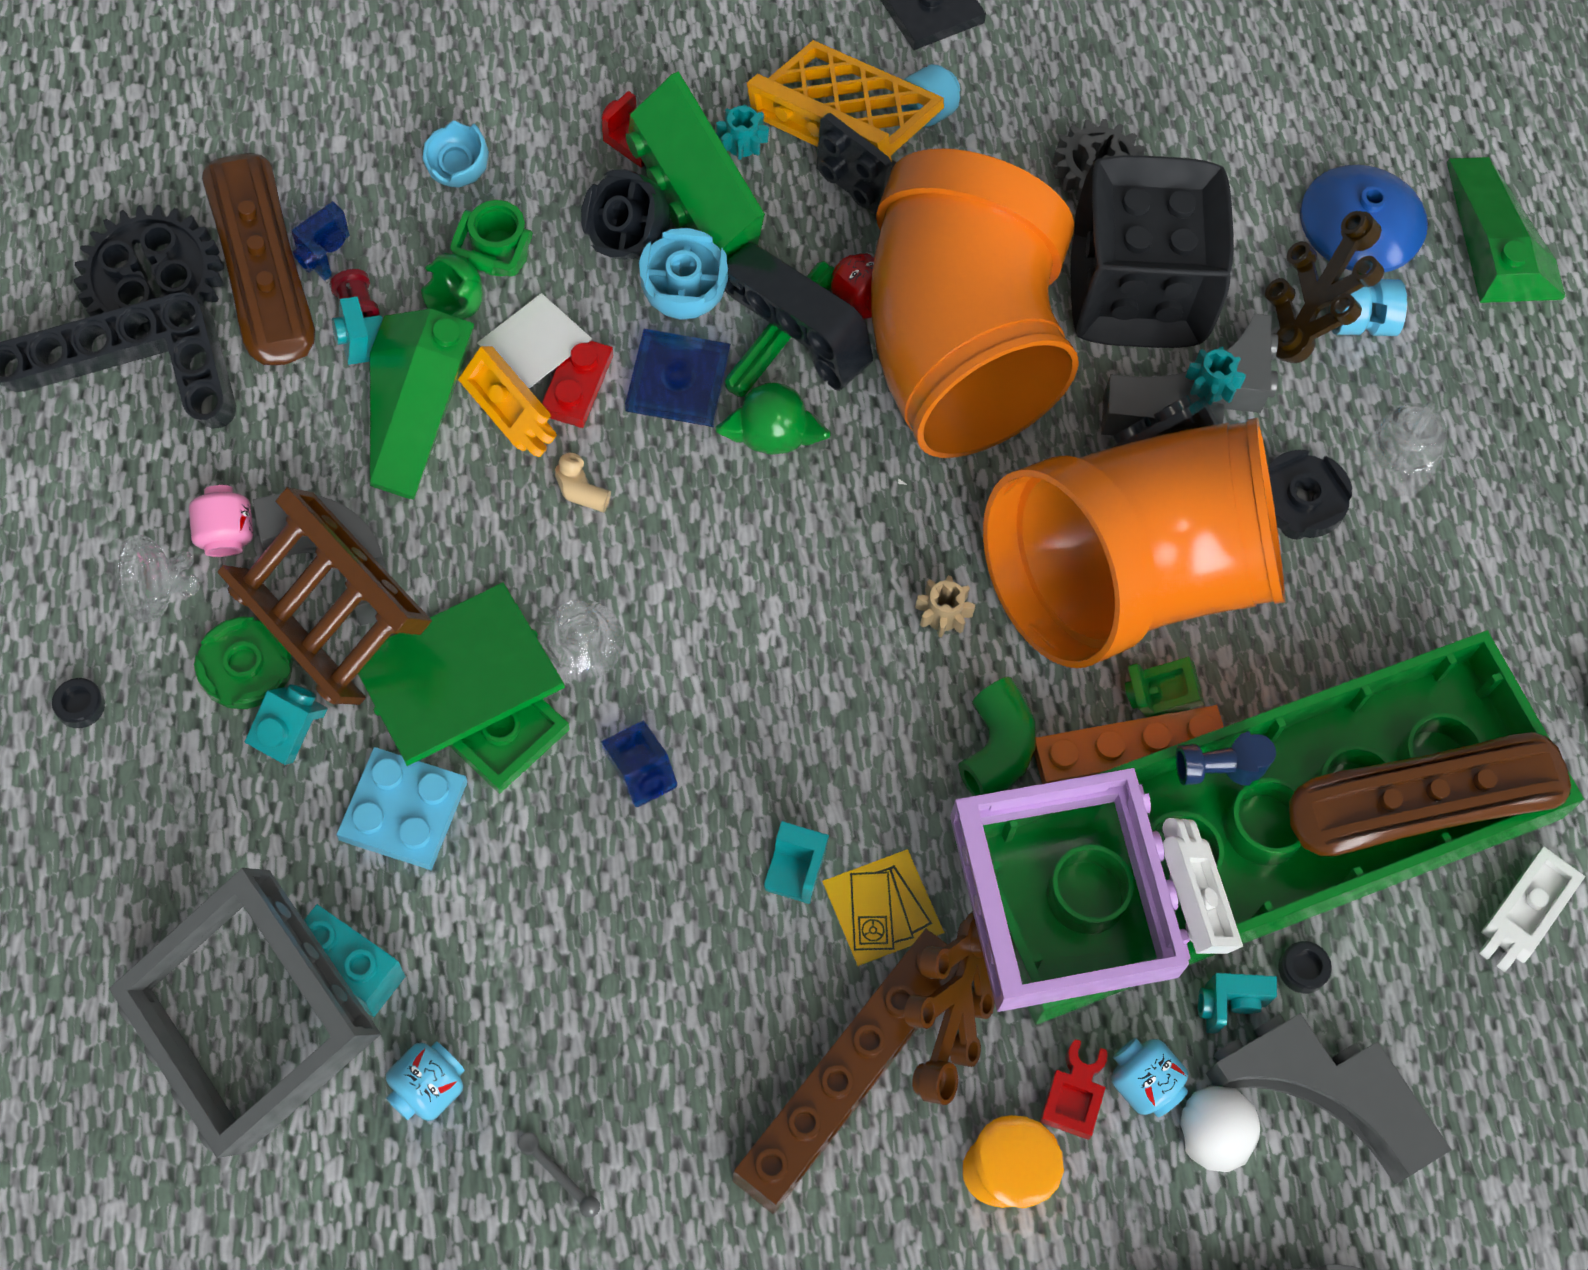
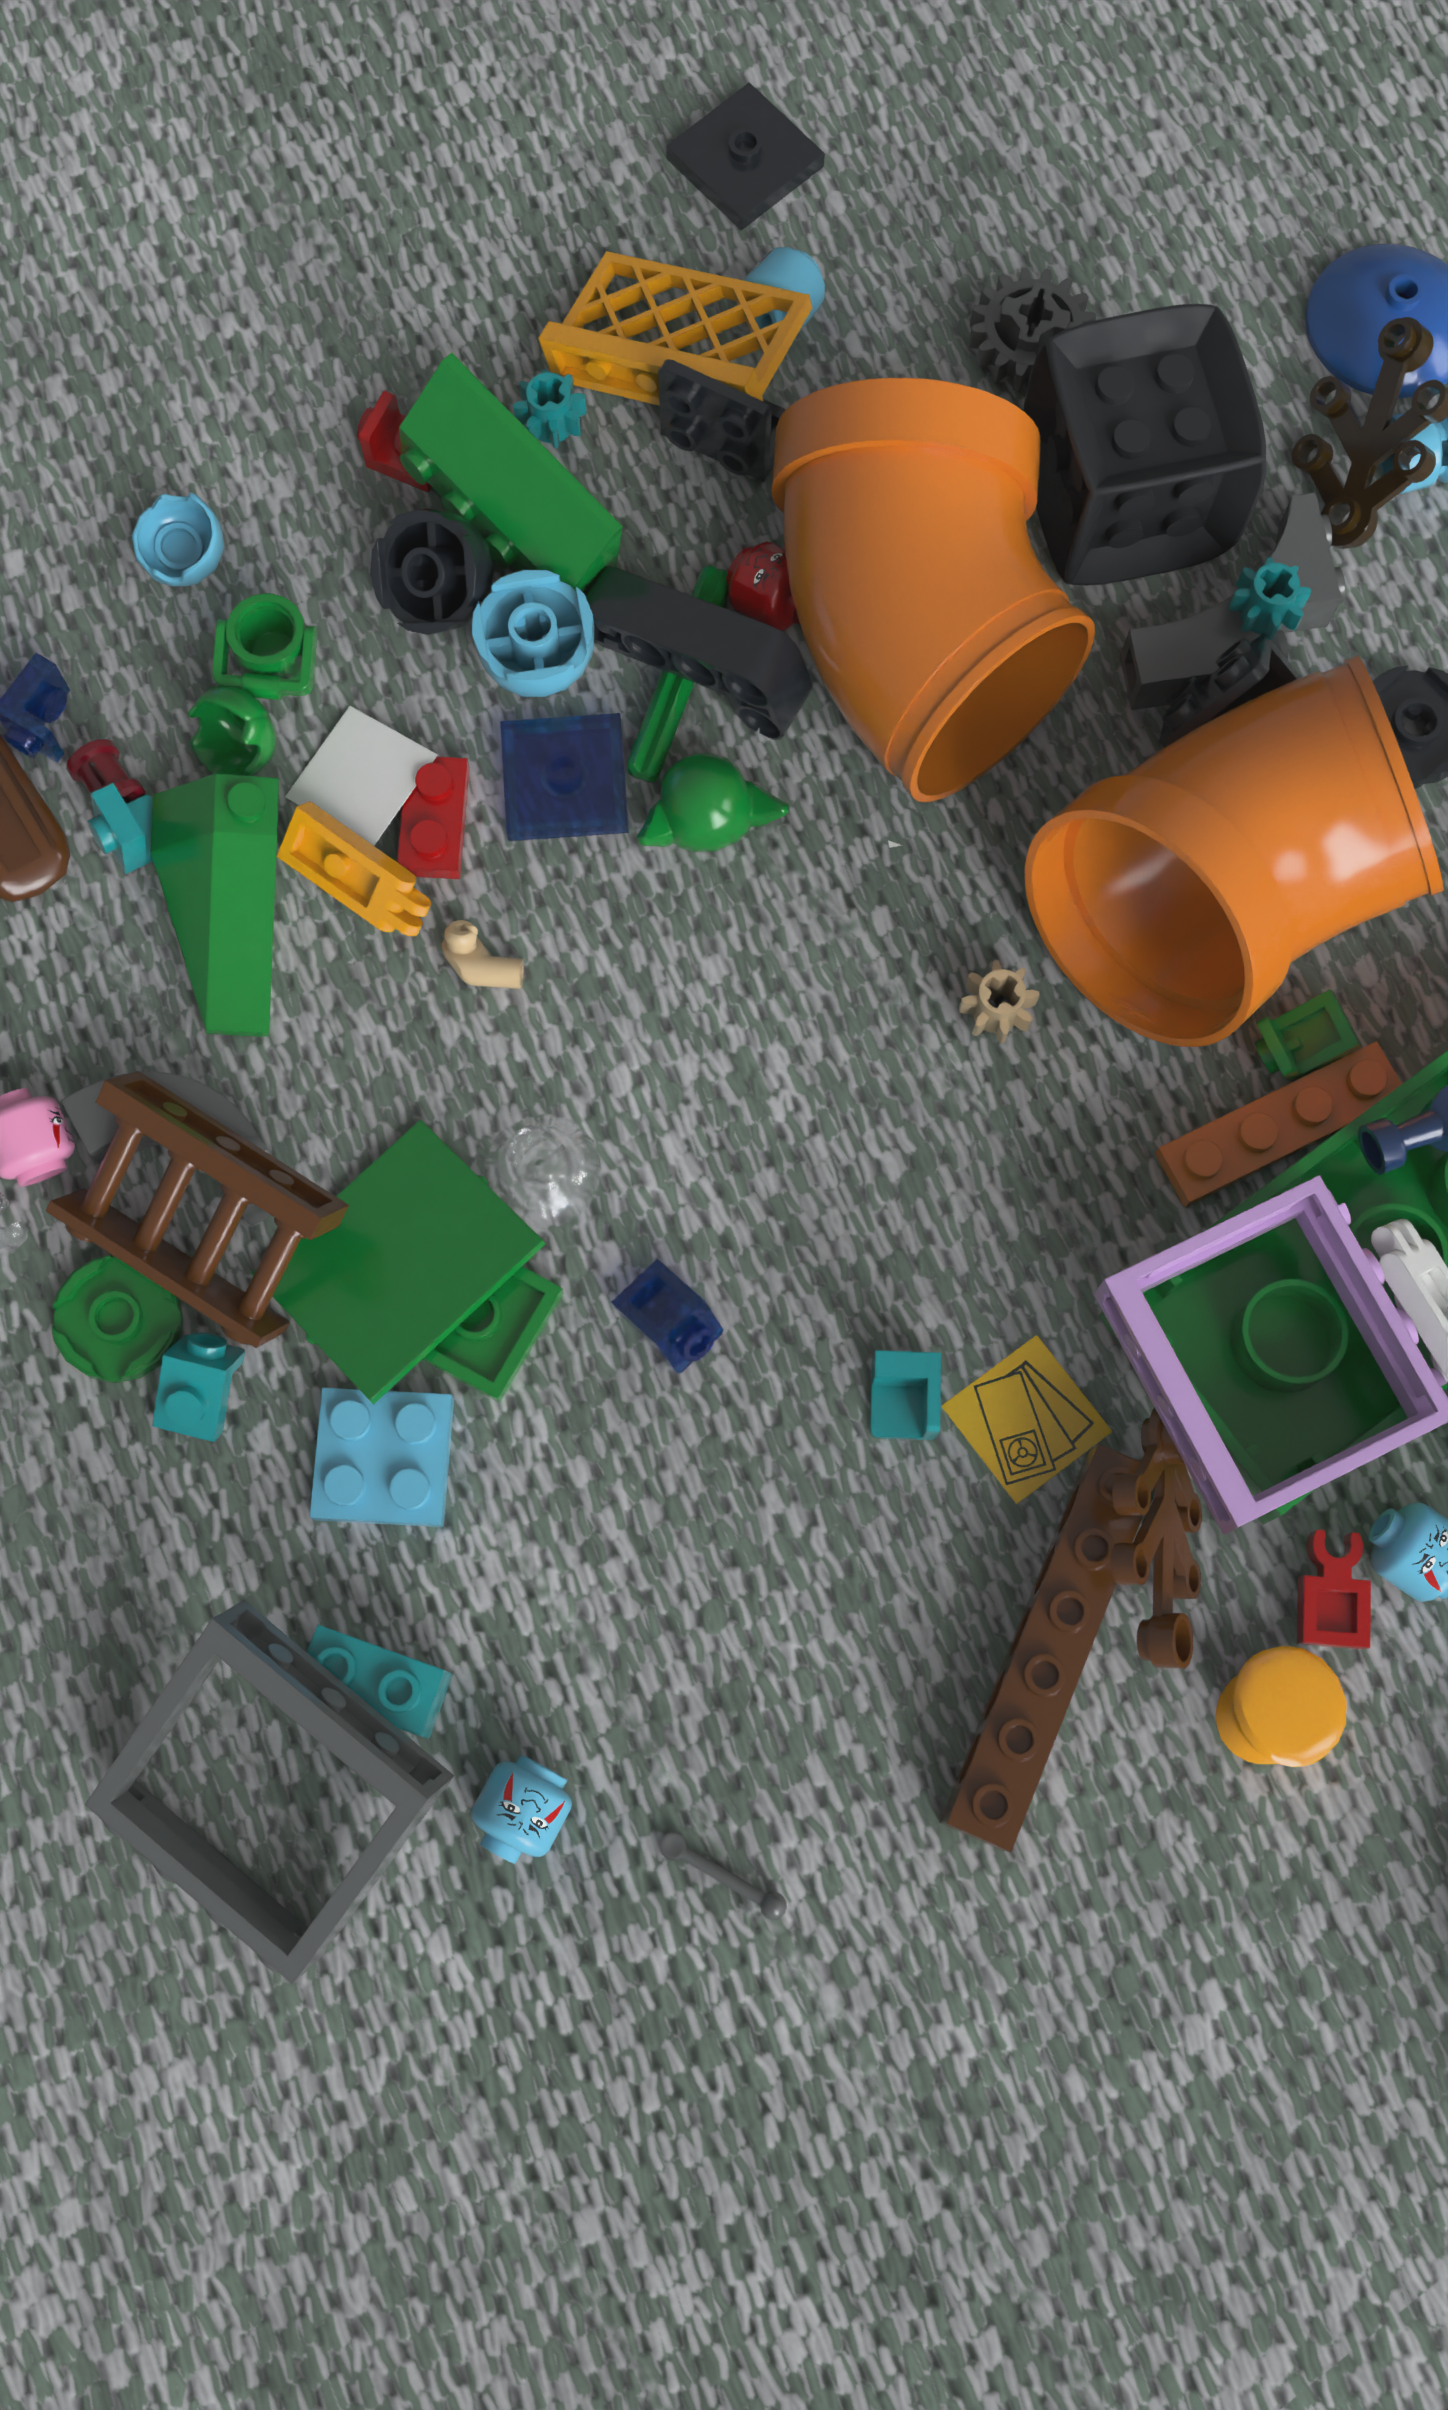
camera: 10 degrees left, 10 degrees up
(1009, 742) = (1130, 1165): green cylinder -> none

